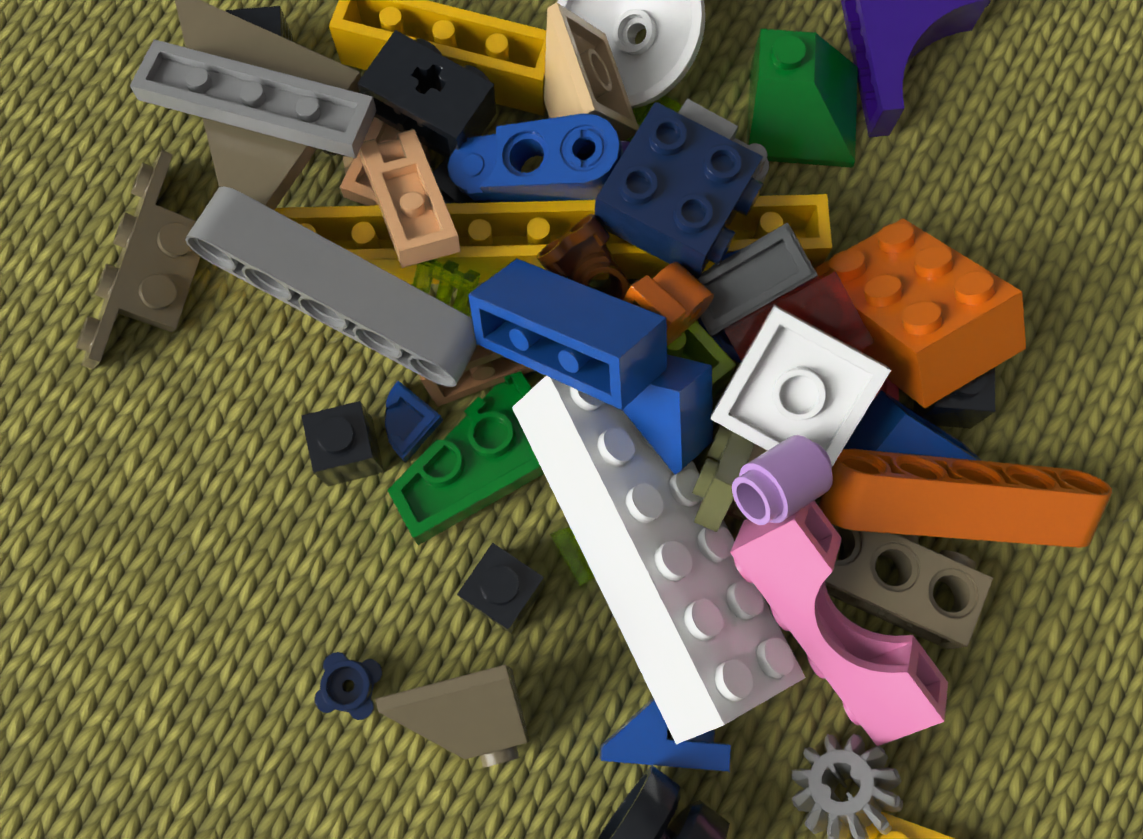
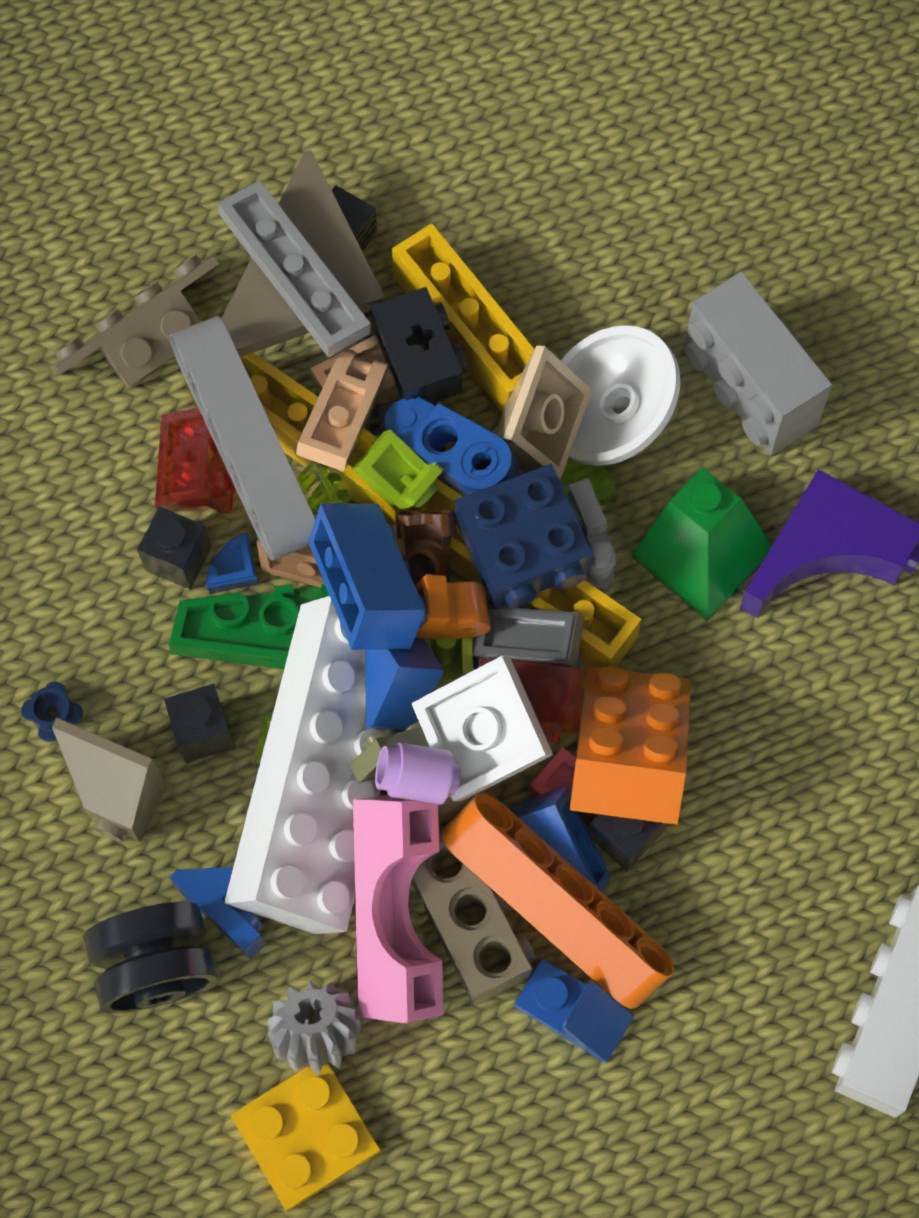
camera: 40 degrees right, 5 degrees down
(295, 355) = (191, 466): none -> clear red bracket
(511, 217) = (397, 472): none -> lime bracket
(1039, 584) = (574, 1010): none -> blue slope

